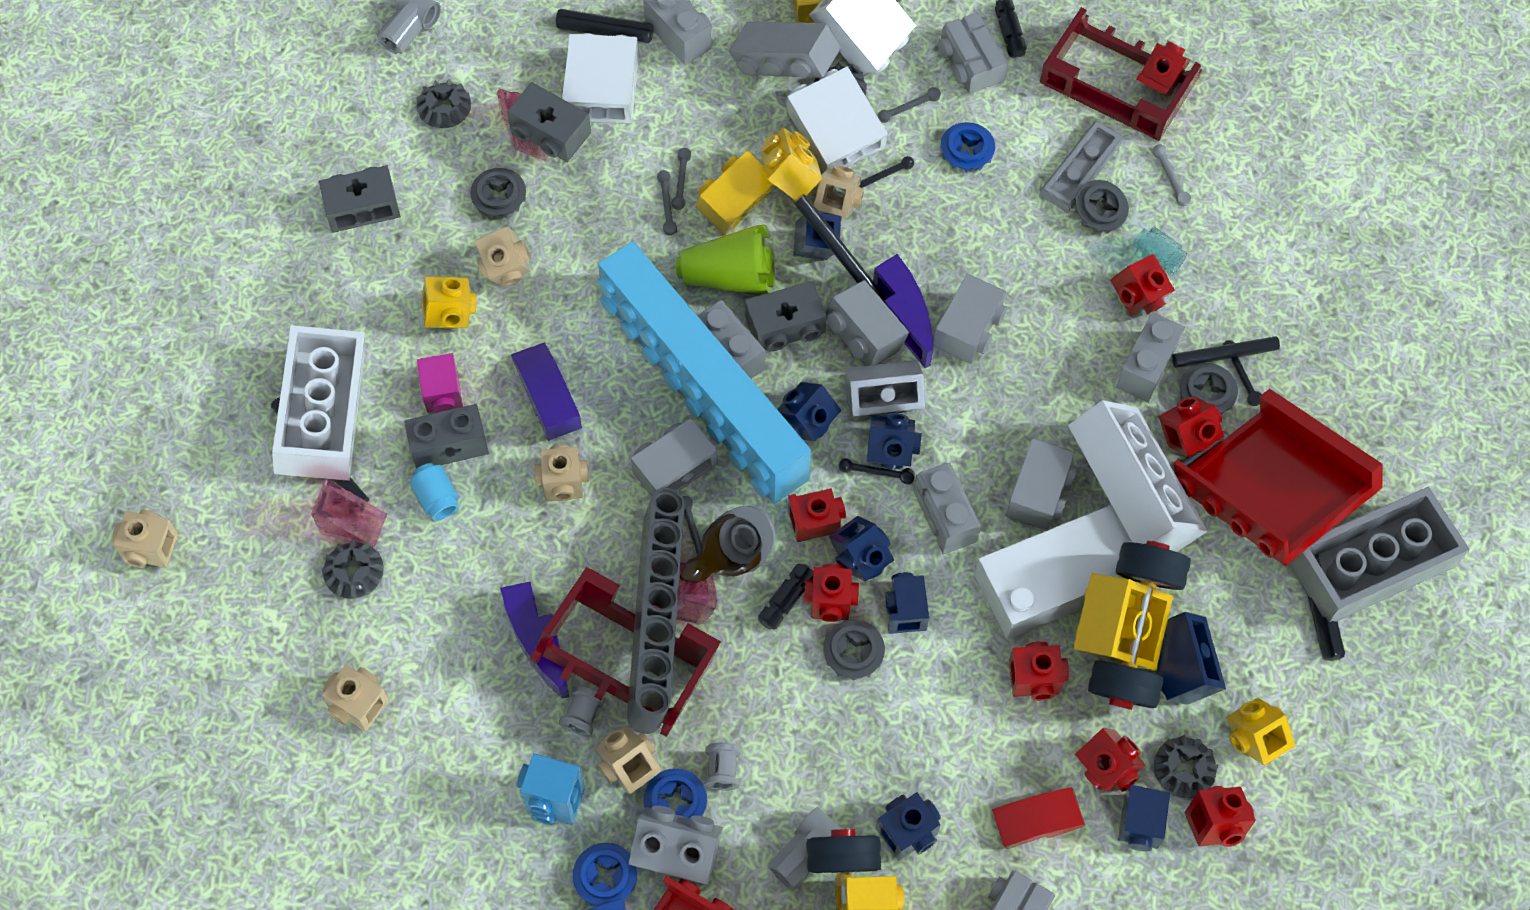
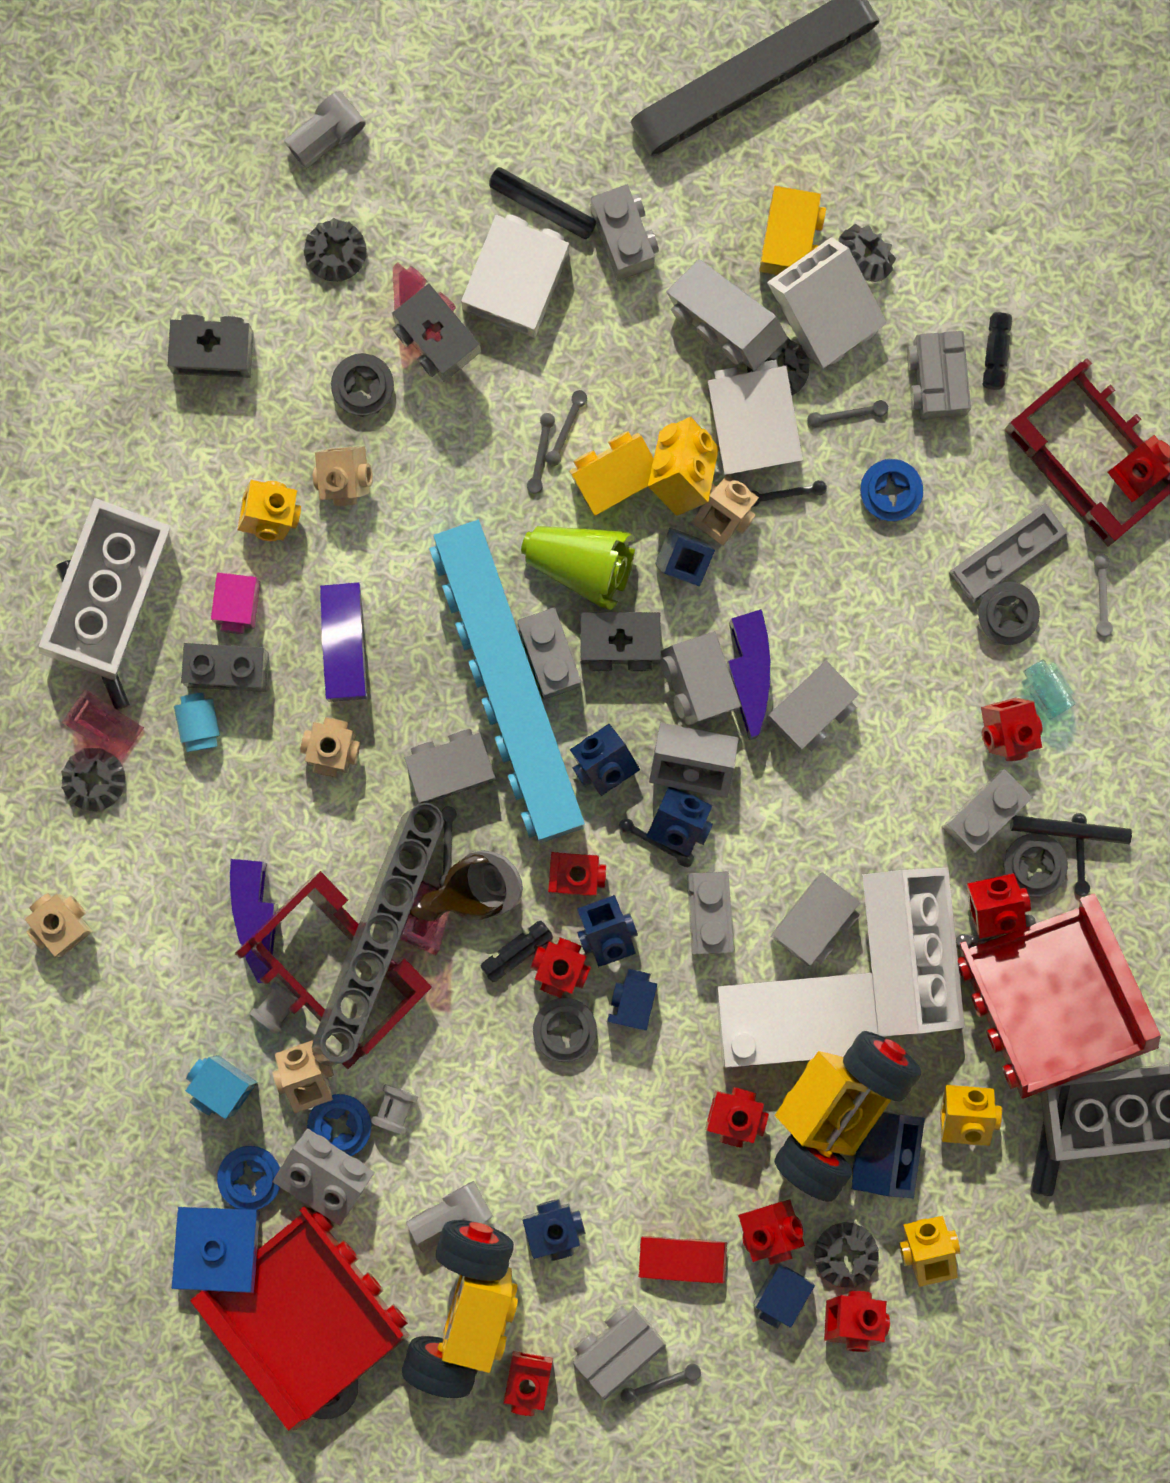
camera: 15 degrees right, 20 degrees up
(835, 243) = (700, 591): black bar -> none
(1243, 604) = (969, 1115): none -> yellow brick

